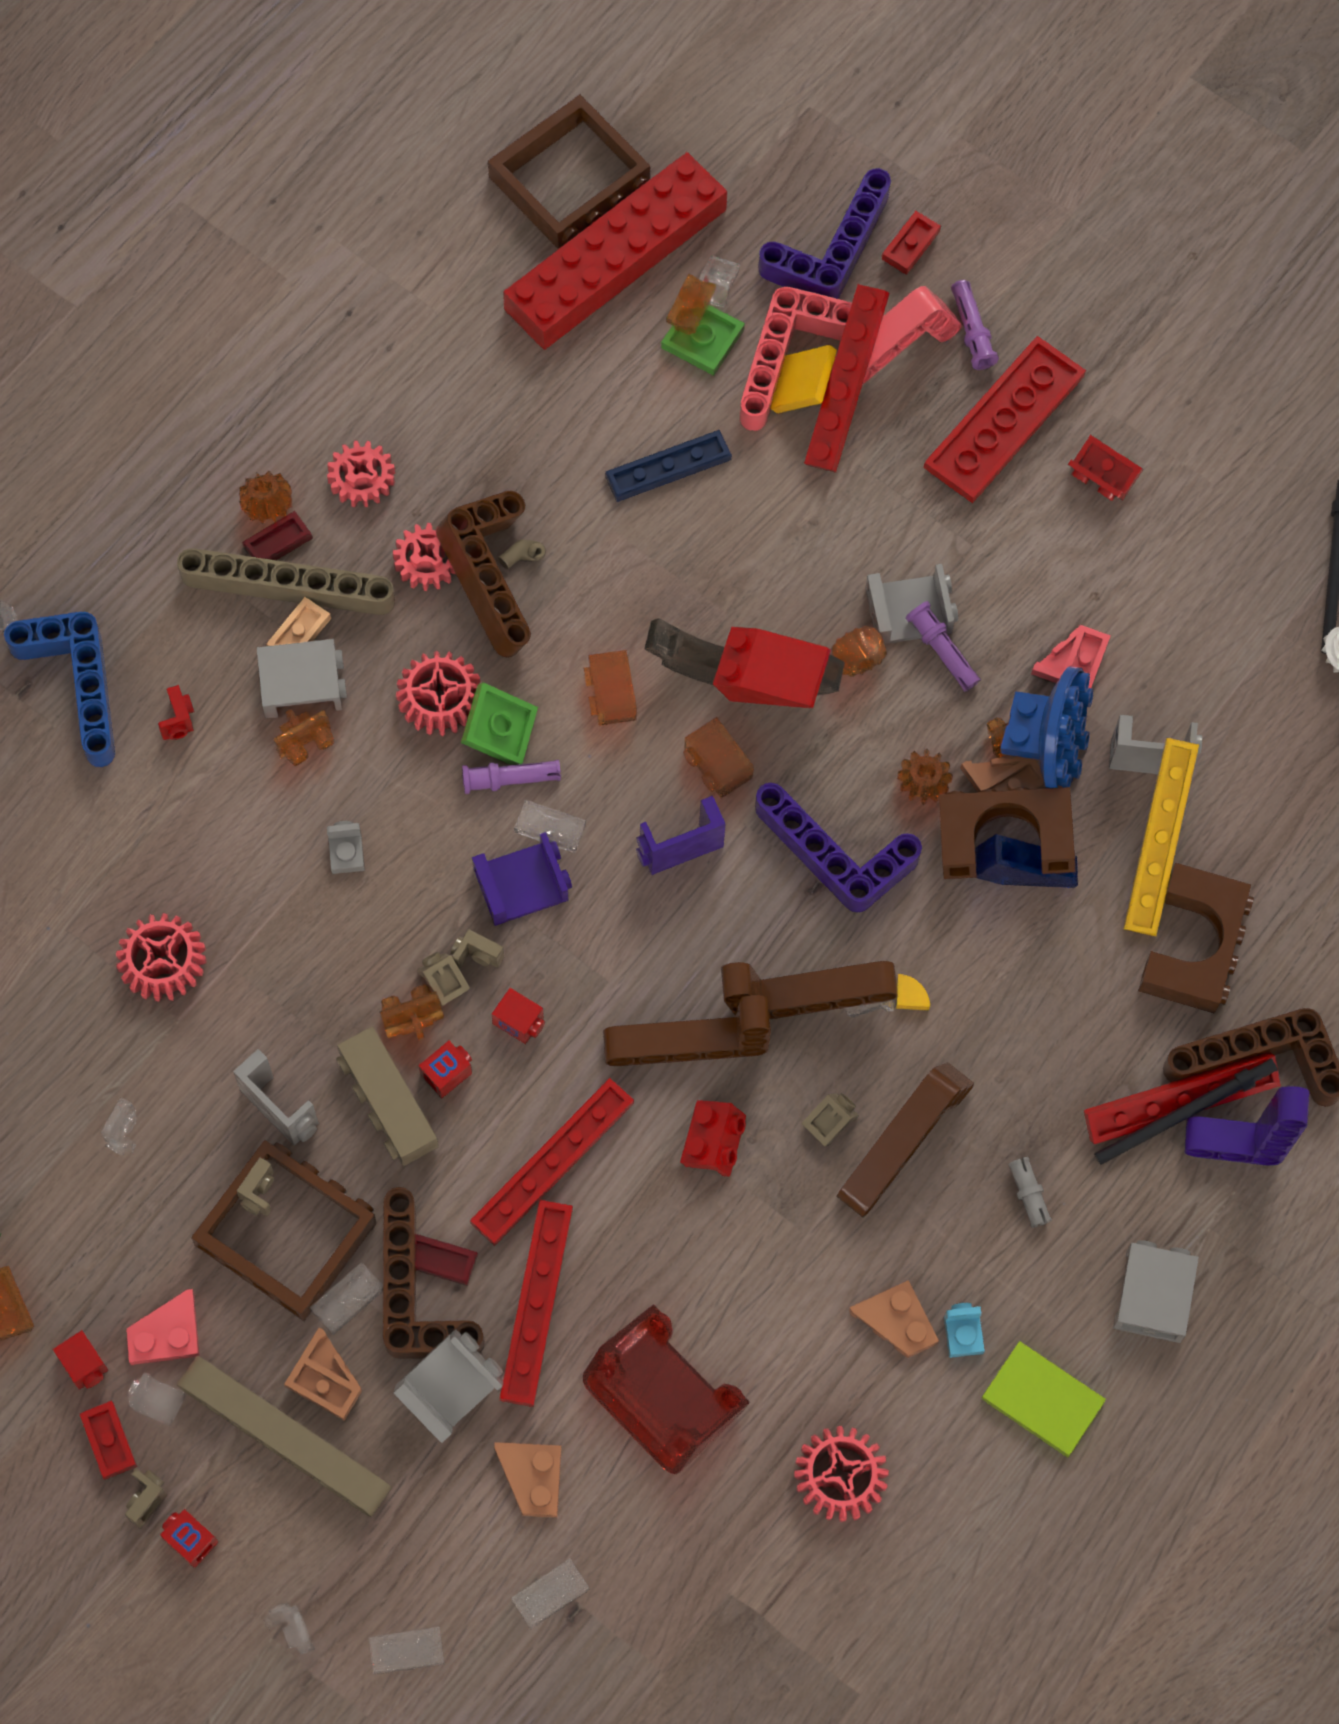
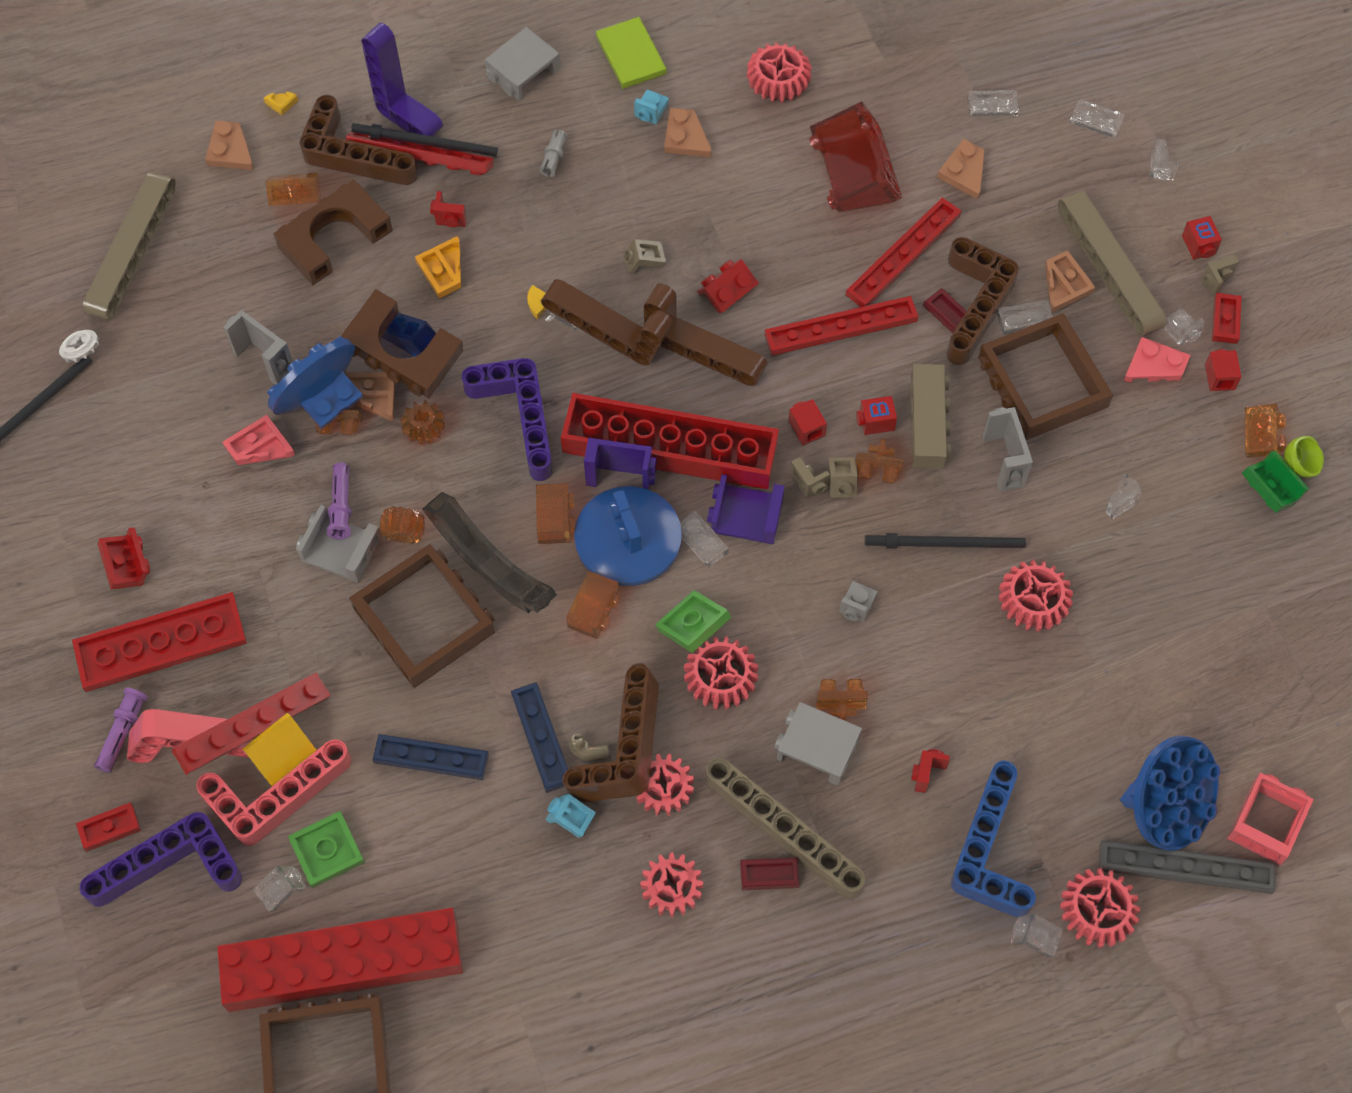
camera: 145 degrees left, 5 degrees down
(256, 1182) = (1055, 394): dark tan bracket -> none
(265, 497) = (752, 912): clear orange gear -> none
(301, 625) = (797, 784): light nougat plate -> none
(348, 937) = (892, 540): none -> black bar
(448, 1384) = (1000, 232): light grey panel -> none
(493, 776) = (719, 591): medium lavender pin -> none
(497, 479) = (570, 814): none -> medium azure bracket
(577, 542) = (540, 735): none -> dark blue tile
(624, 778) = (628, 535): none -> blue bracket
(648, 900) = (678, 439): none -> red brick
(690, 304) = (319, 863): clear orange hips -> none
(770, 668) = (477, 524): red slope -> none
(789, 540) = (449, 653): none -> reddish brown window
(938, 1092) = (601, 203): reddish brown beam -> none
(1043, 969) = (442, 267): none -> light orange wing
(1084, 1035) = (447, 214): none -> red bracket
(1161, 837) = (303, 287): yellow tile -> none
(1278, 956) = (293, 189): none -> clear orange brick

